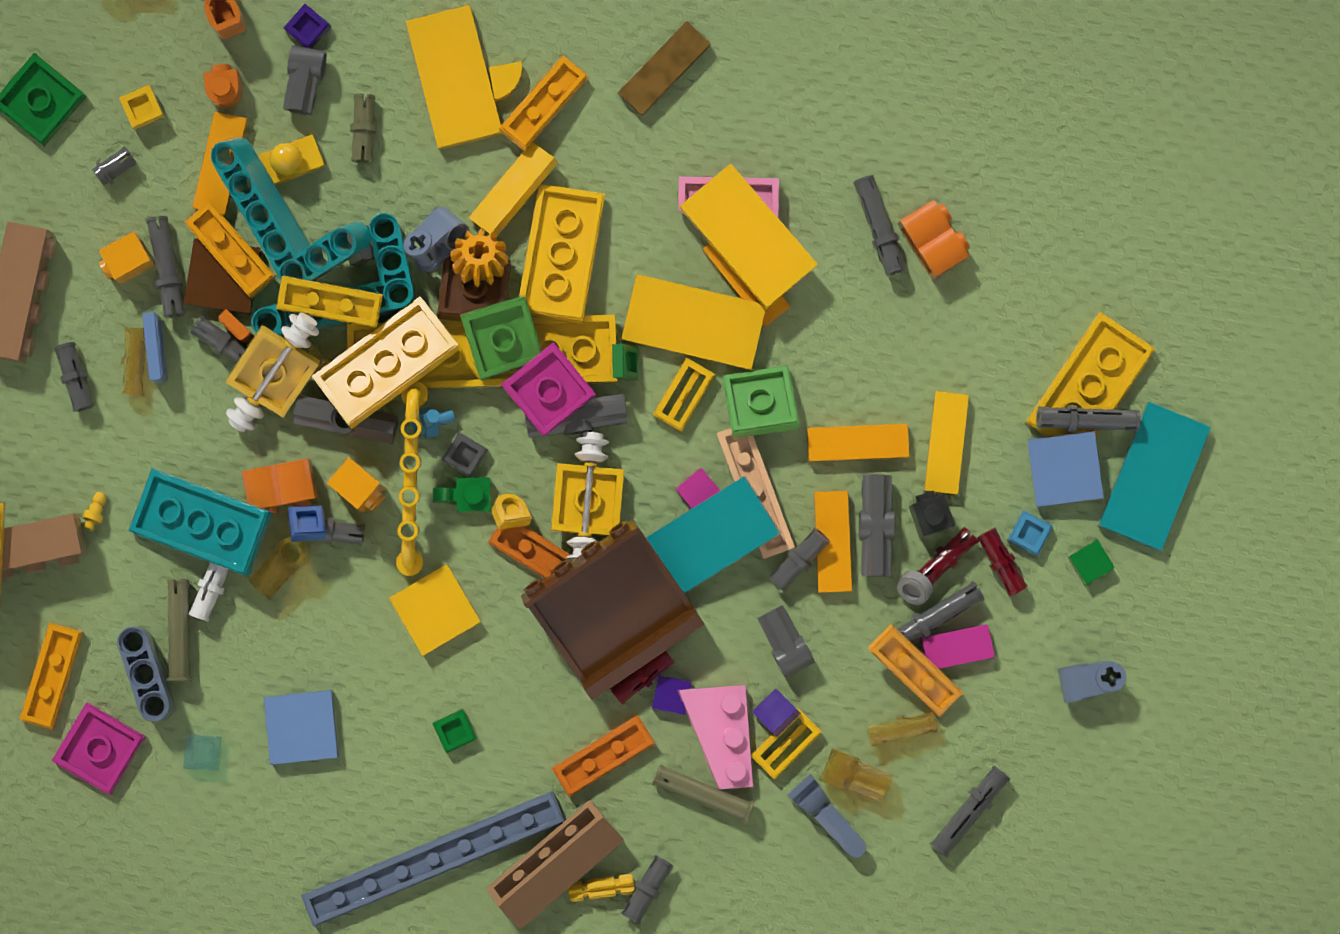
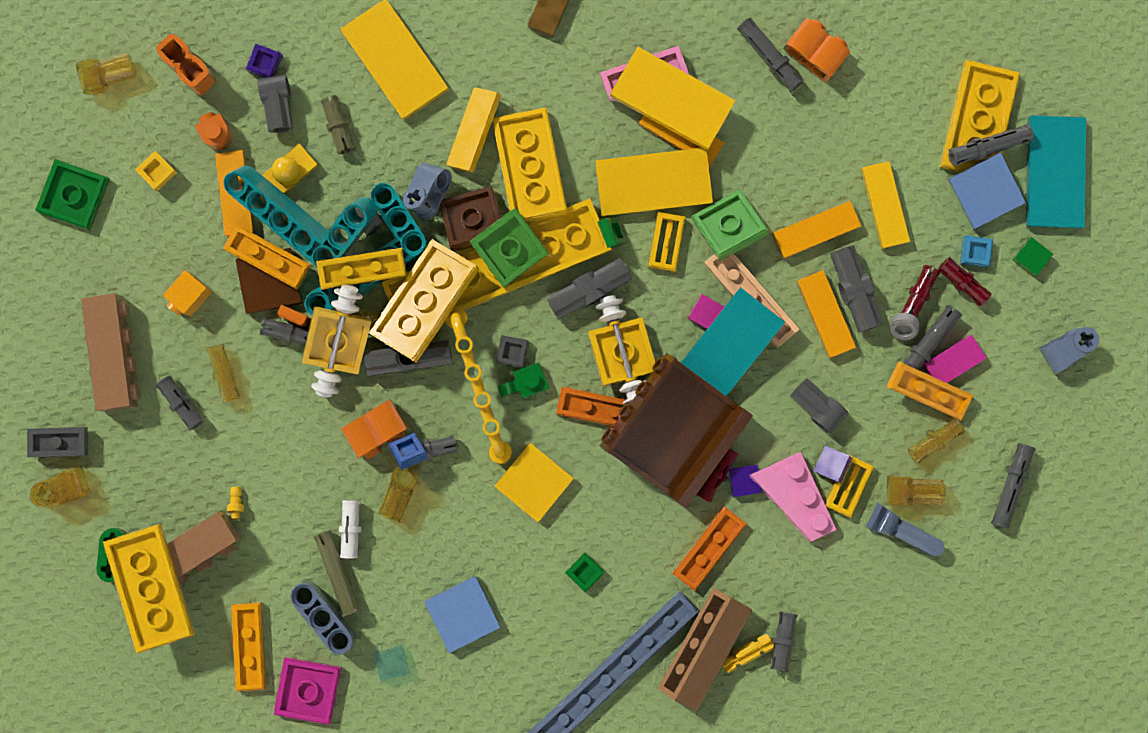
camera: 20 degrees left, 0 degrees up
(112, 168) = (150, 227): dark grey pin -> none
(155, 347) = (235, 356): medium blue tile -> none
(165, 265) = (226, 298): dark grey pin -> none
(200, 522) = (323, 480): teal tile -> none
(357, 486) = (437, 406): light orange brick -> none
(431, 420) = (476, 334): dark azure piece -> none
(491, 253) = (467, 191): light orange gear -> none
(505, 79) = (435, 46): yellow tile -> none
(510, 512) = (565, 383): yellow tile -> none
(543, 103) = (472, 54): light orange tile -> none
(548, 389) = (560, 275): dark pink tile -> none
(703, 793) = (800, 549): olive pin -> none
(799, 559) = (806, 337): dark grey pin -> none
(931, 514) = (896, 264): pearl dark grey brick -> none

